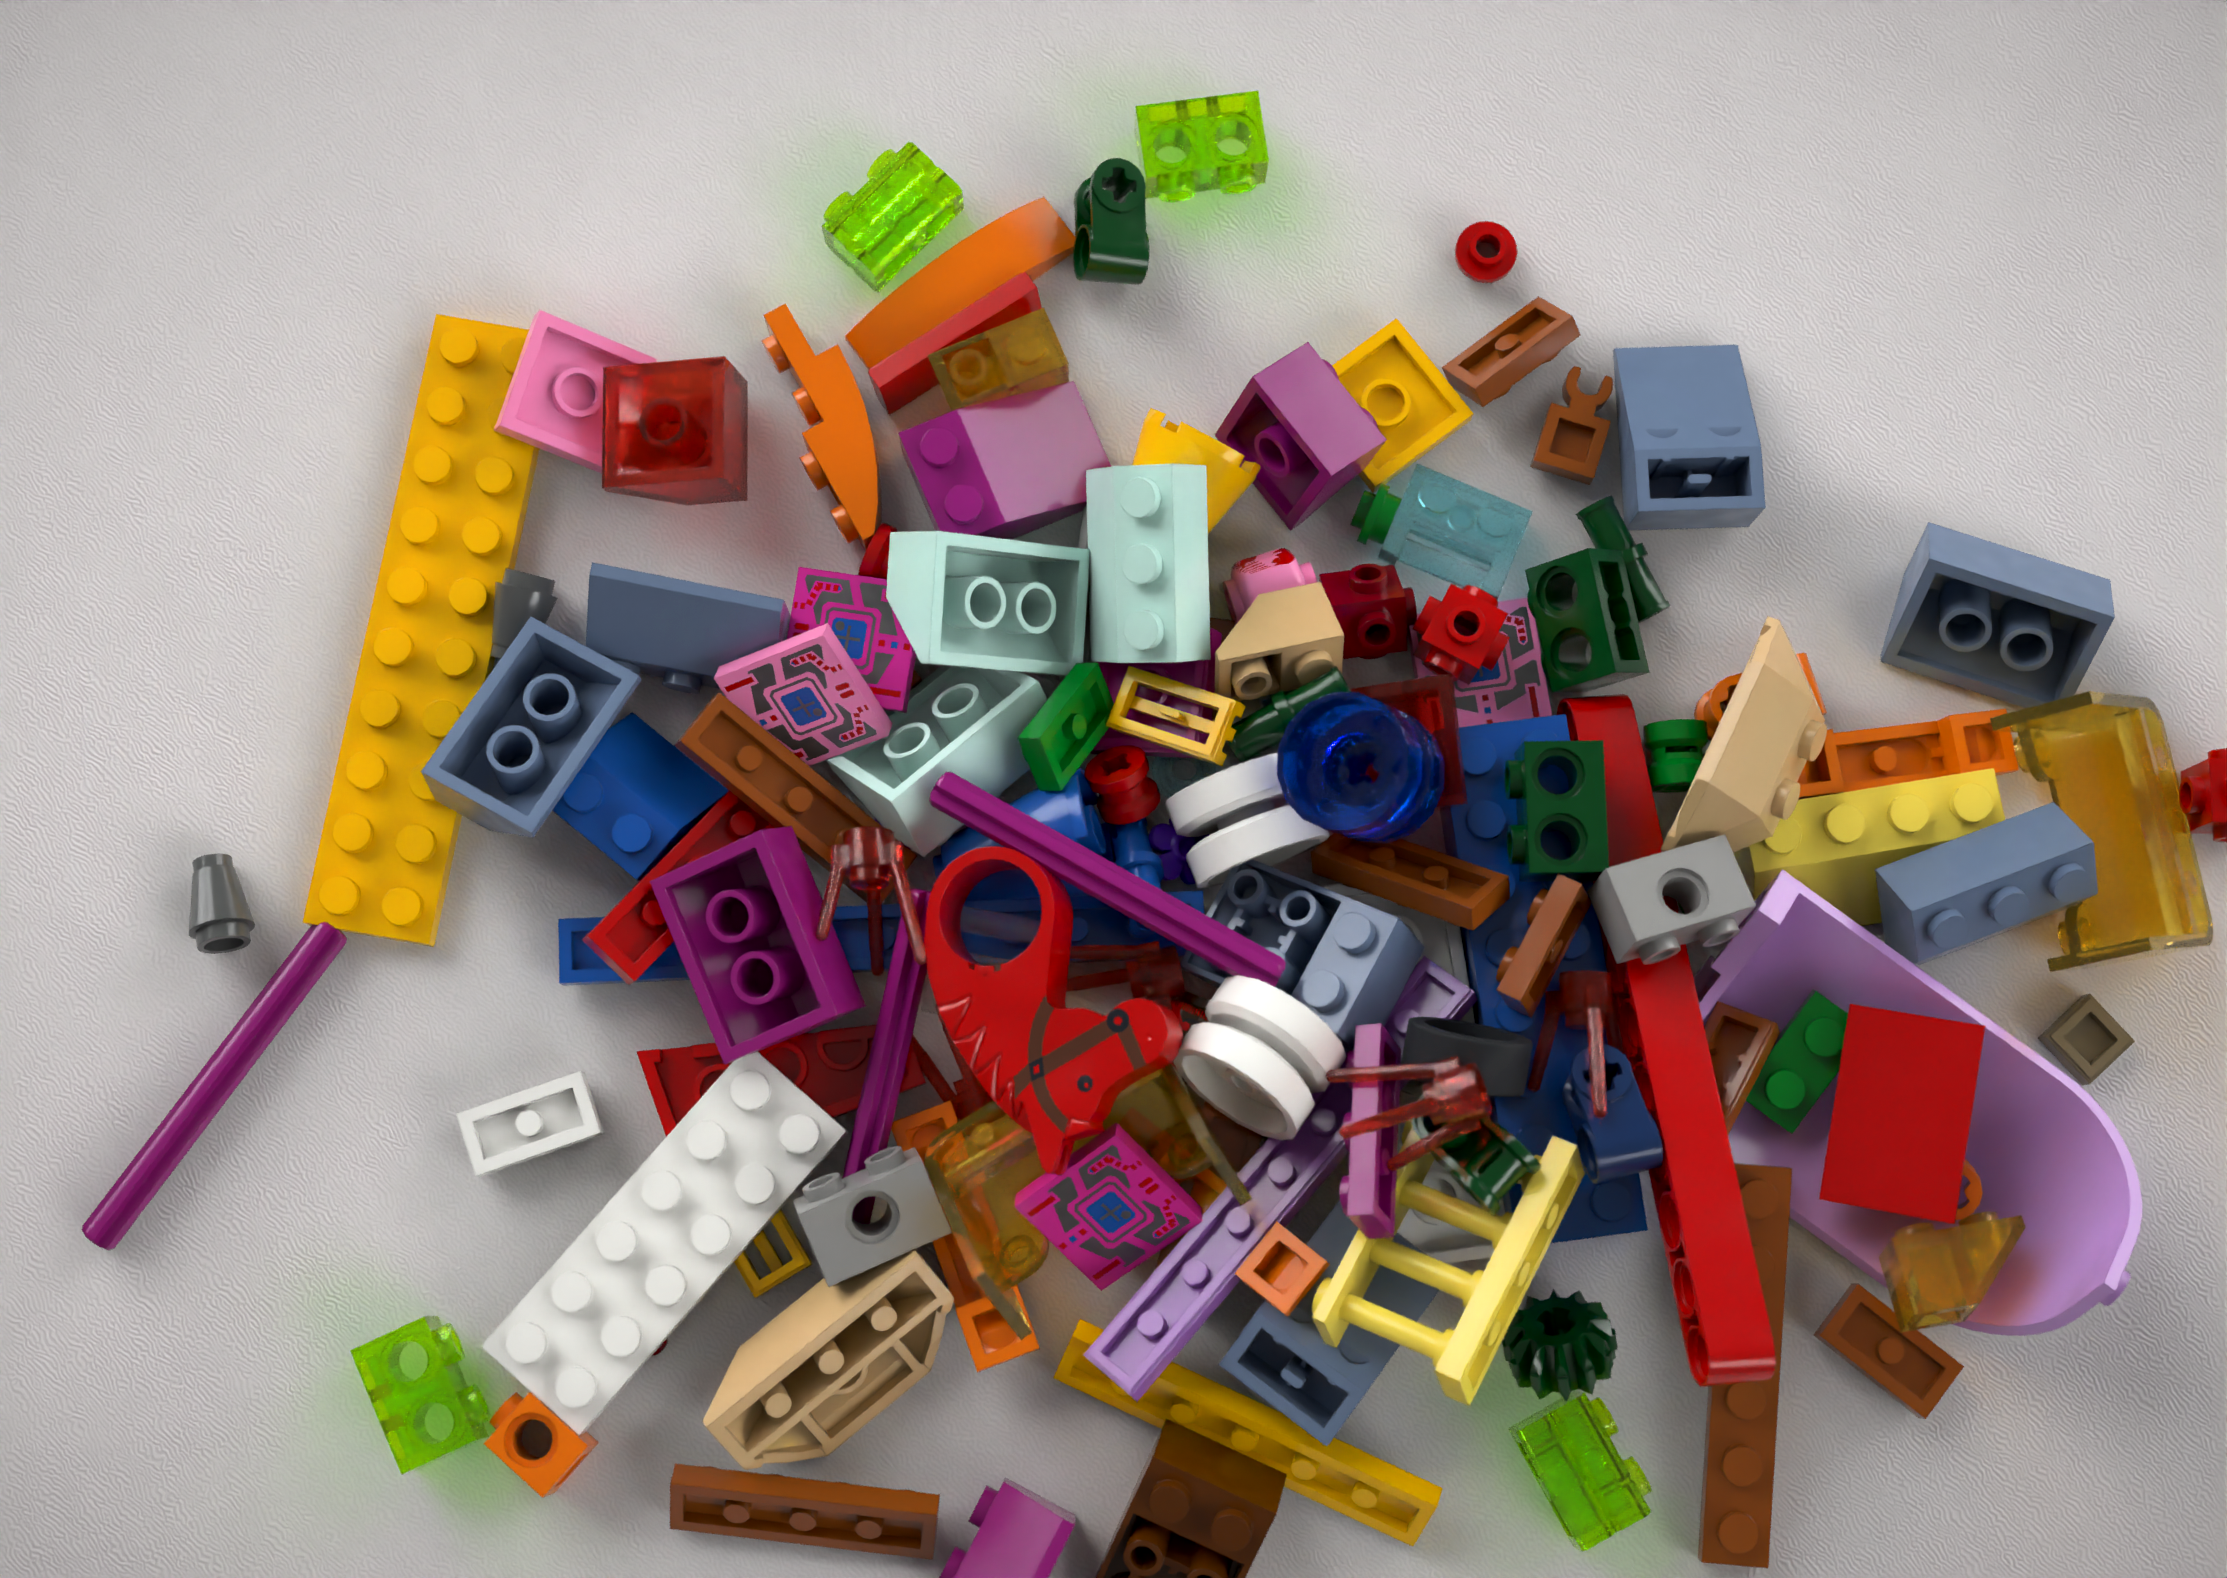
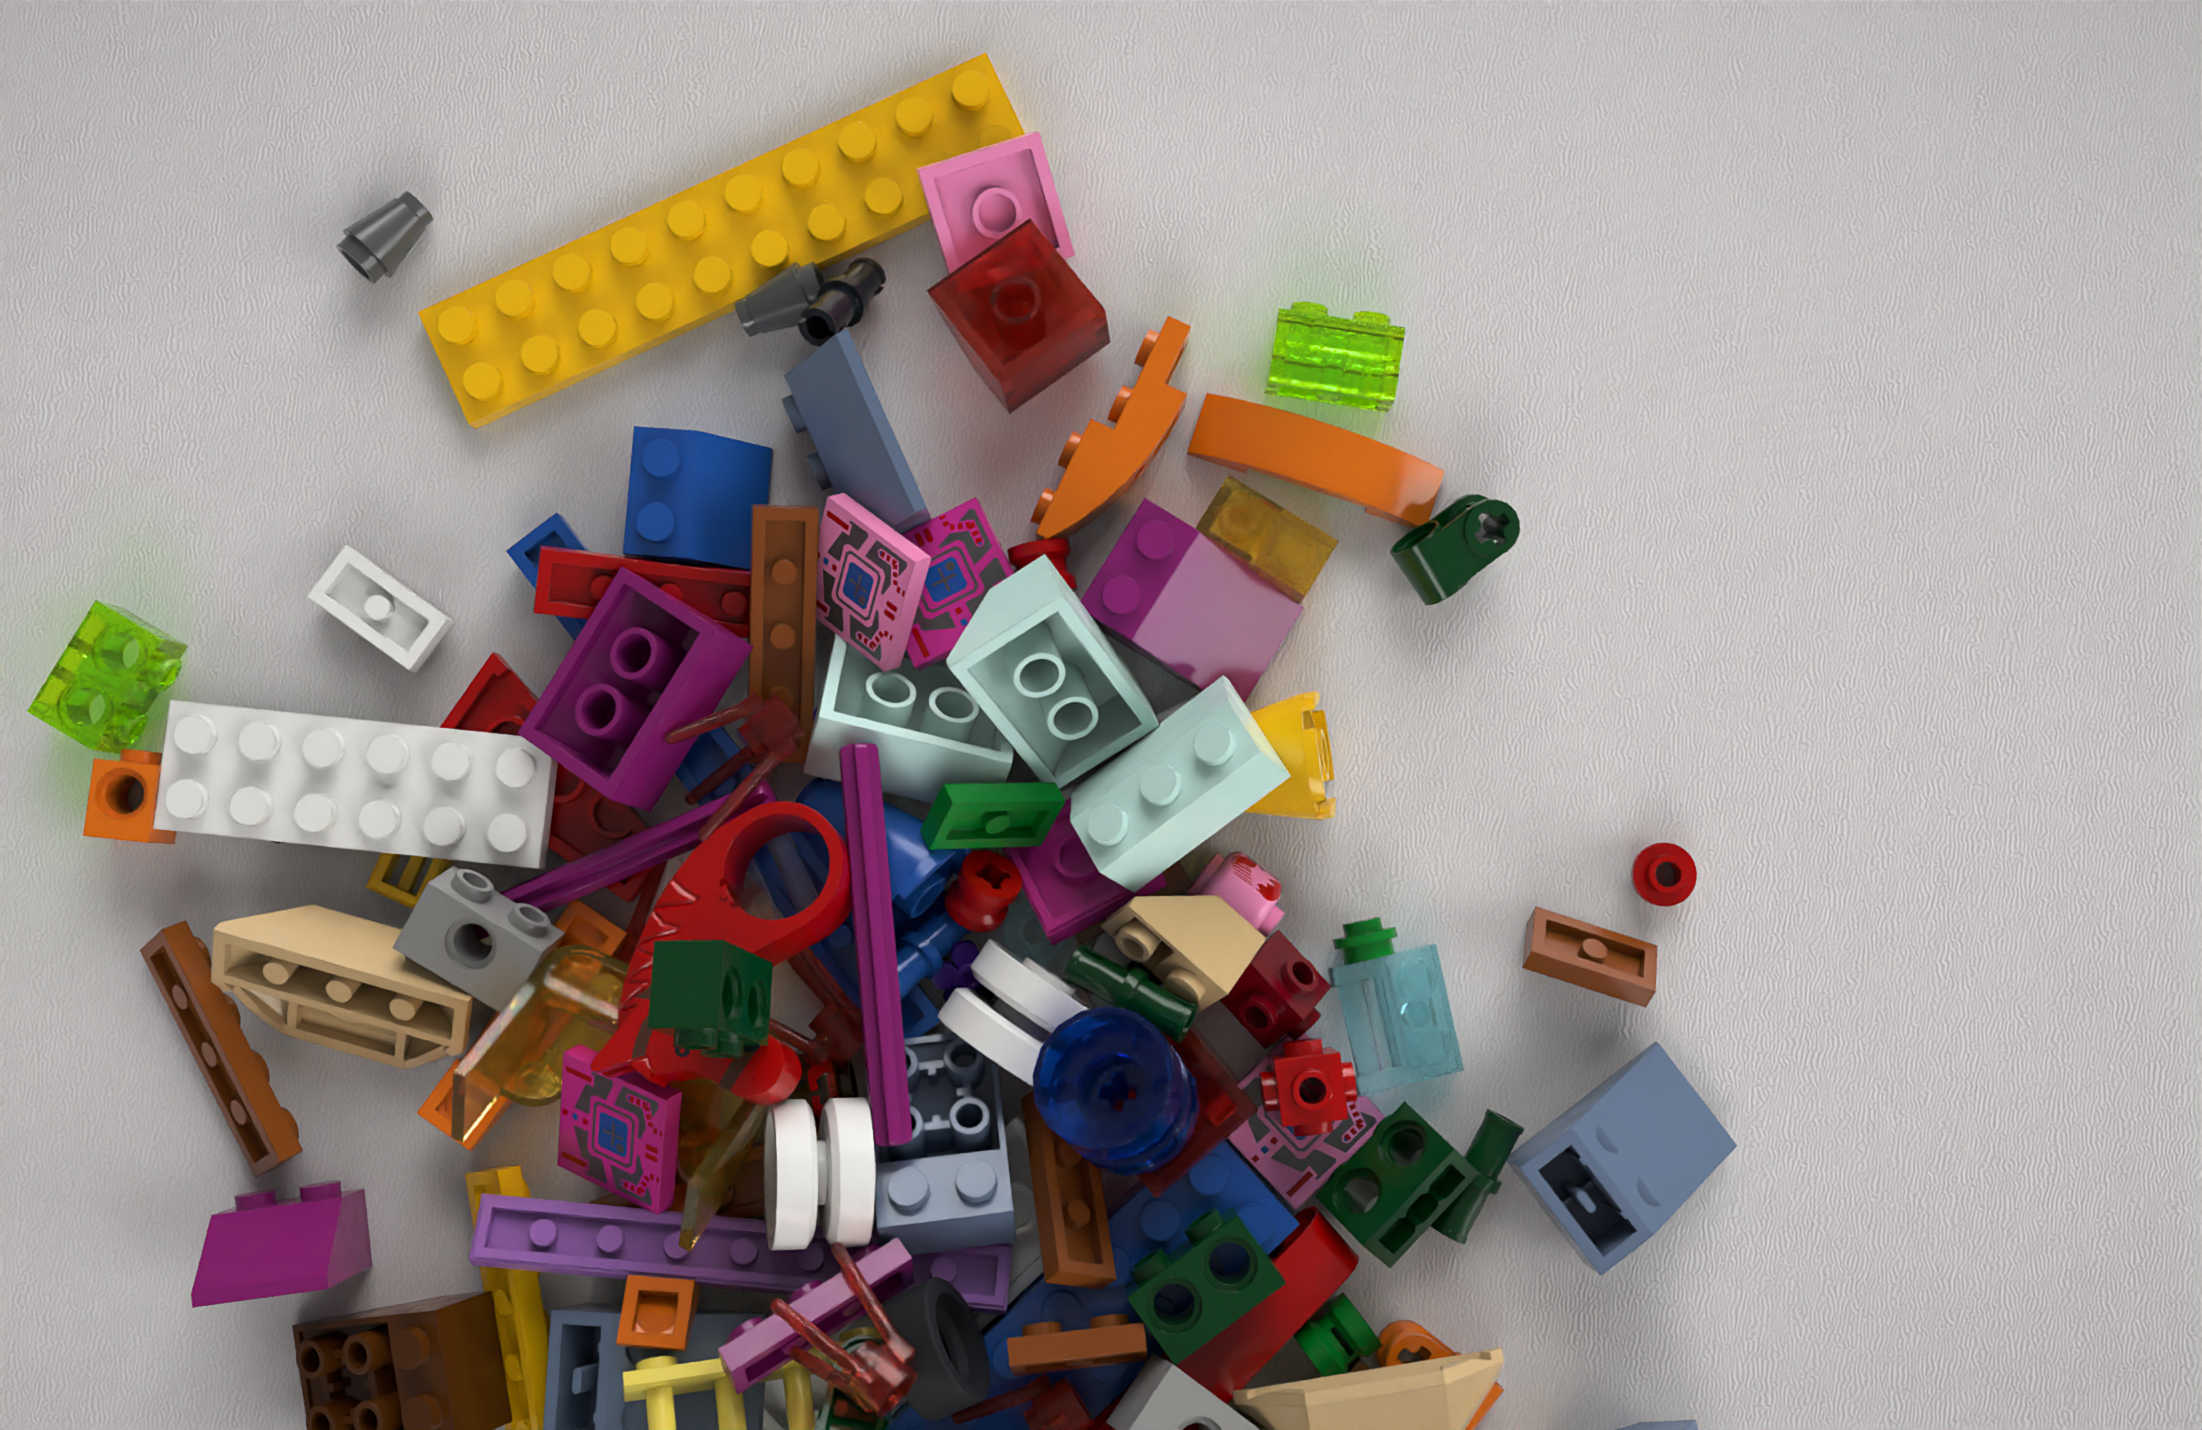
camera: 55 degrees right, 5 degrees up
(213, 1085) = (243, 338): magenta axle -> none
(528, 731) = (683, 378): sand blue slope -> none
(559, 563) = (842, 301): none -> black pin
(908, 370) = (1208, 466): red tile -> none
(1062, 1012) = (710, 996): none -> dark green brick
(1197, 129) = (1592, 558): clear neon green brick -> none
(1218, 730) = (1075, 944): yellow tile -> none
(1301, 433) = (1387, 831): magenta slope -> none
(1404, 396) = (1467, 882): yellow plate -> none
(1572, 435) = (1554, 1060): dark orange plate -> none

